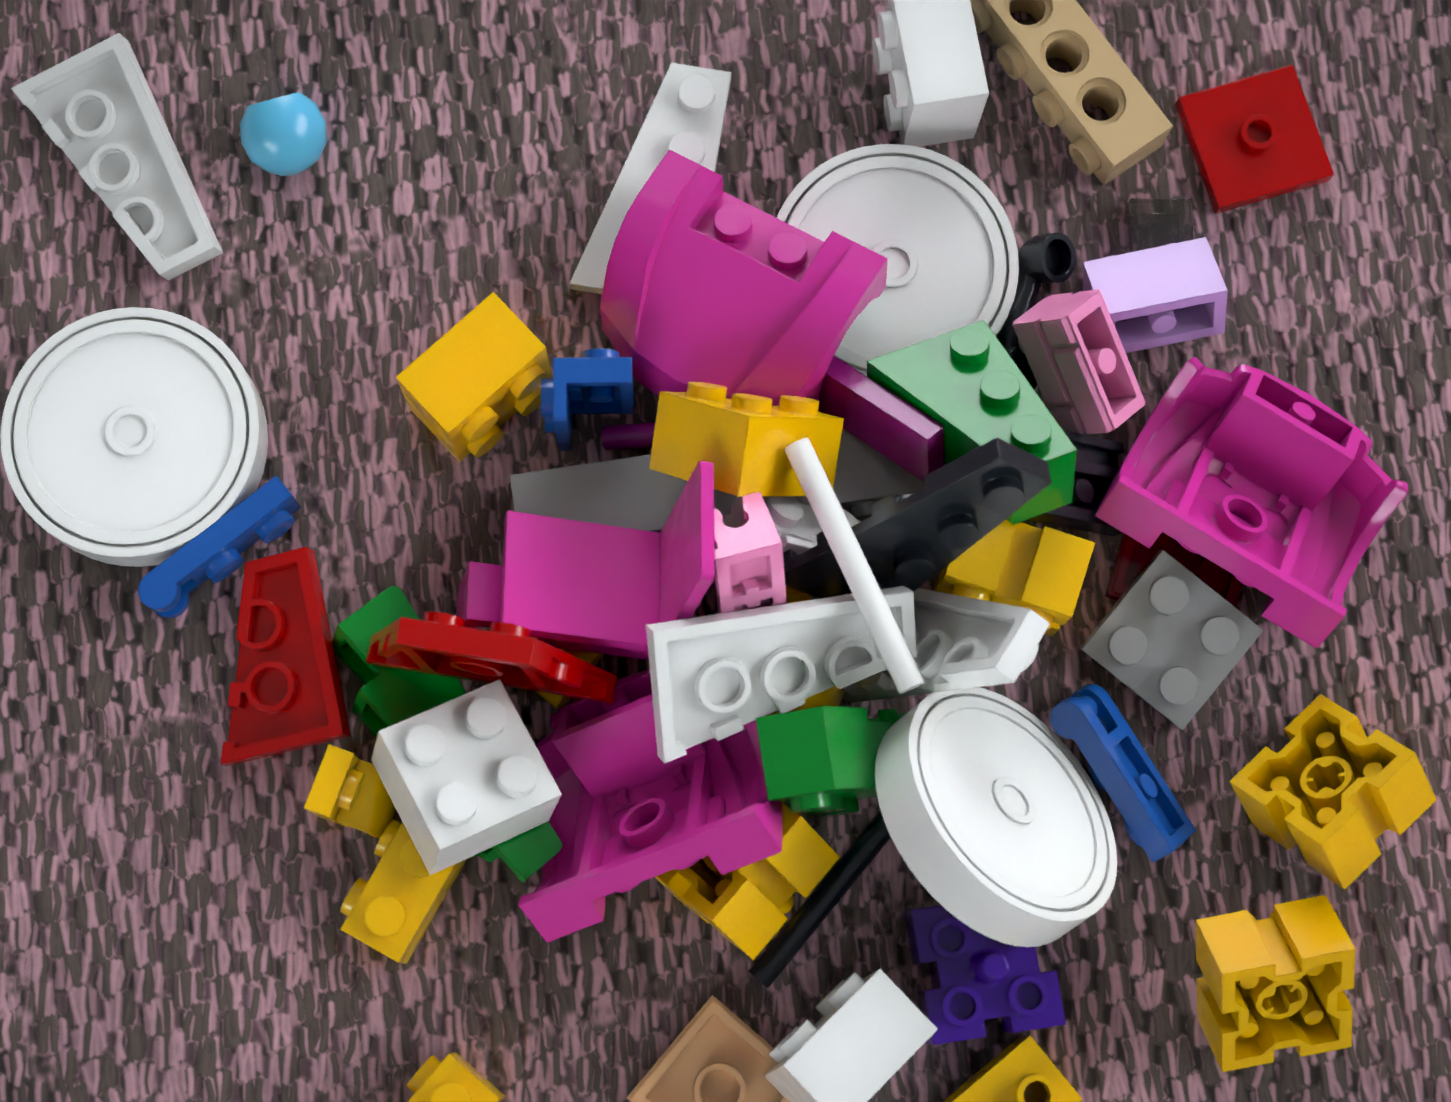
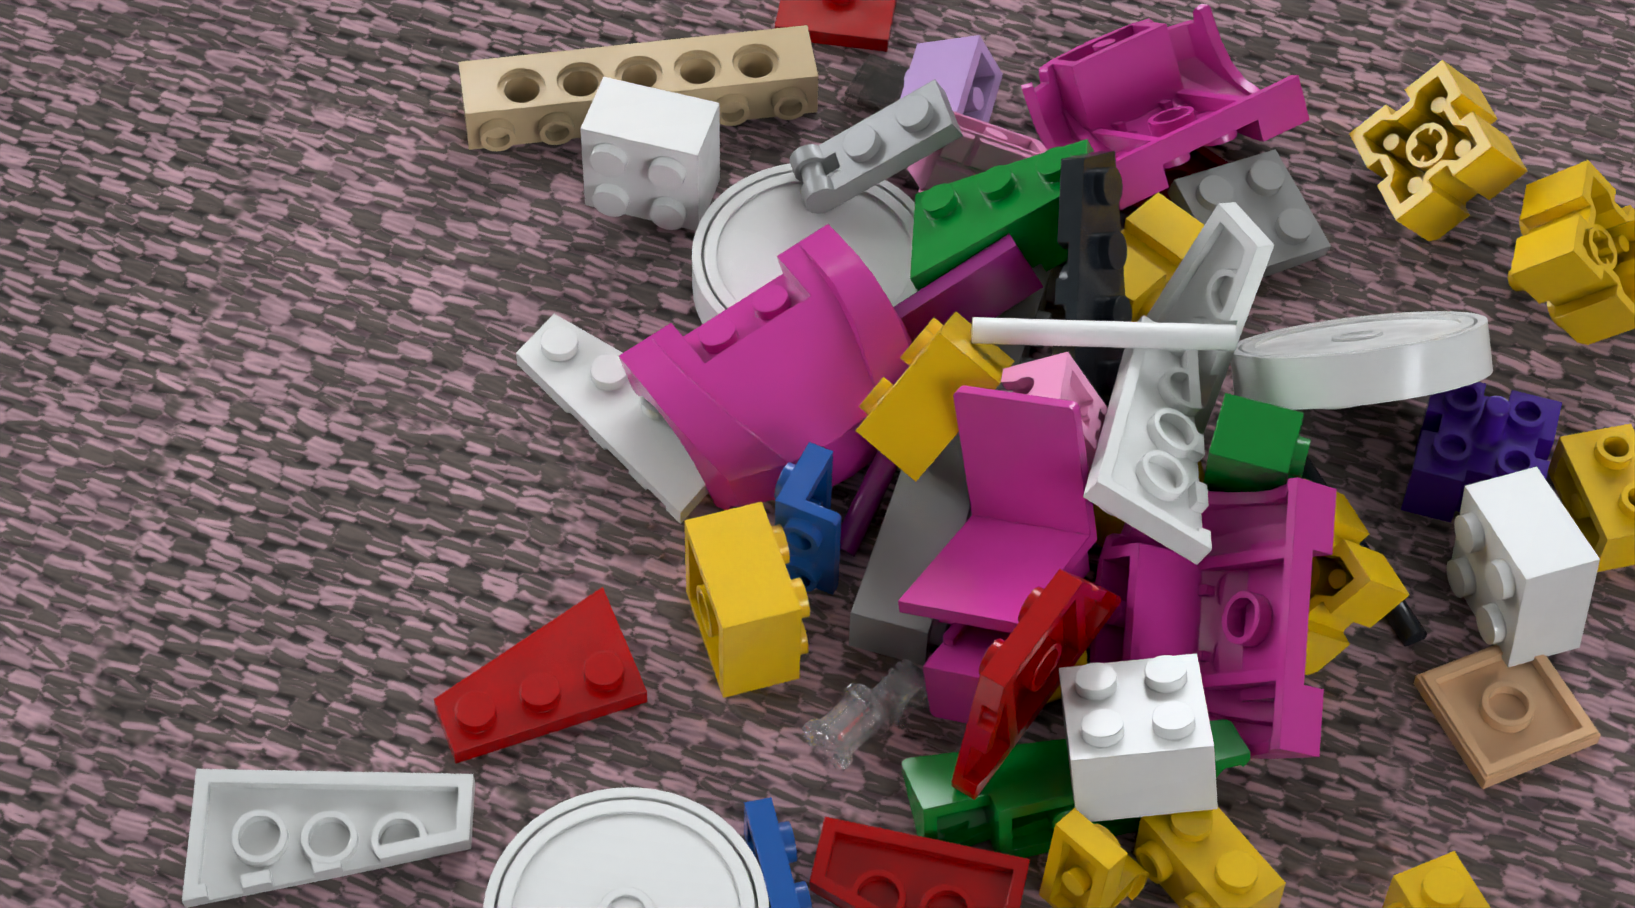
camera: 60 degrees left, 25 degrees down
(284, 134) = (392, 672): medium azure piece -> none
(350, 260) = (544, 683): none -> red wing
(431, 531) = (867, 714): none -> clear connector
(1021, 260) = (875, 148): none -> light grey plate
(1123, 770) = (1346, 296): blue plate -> none

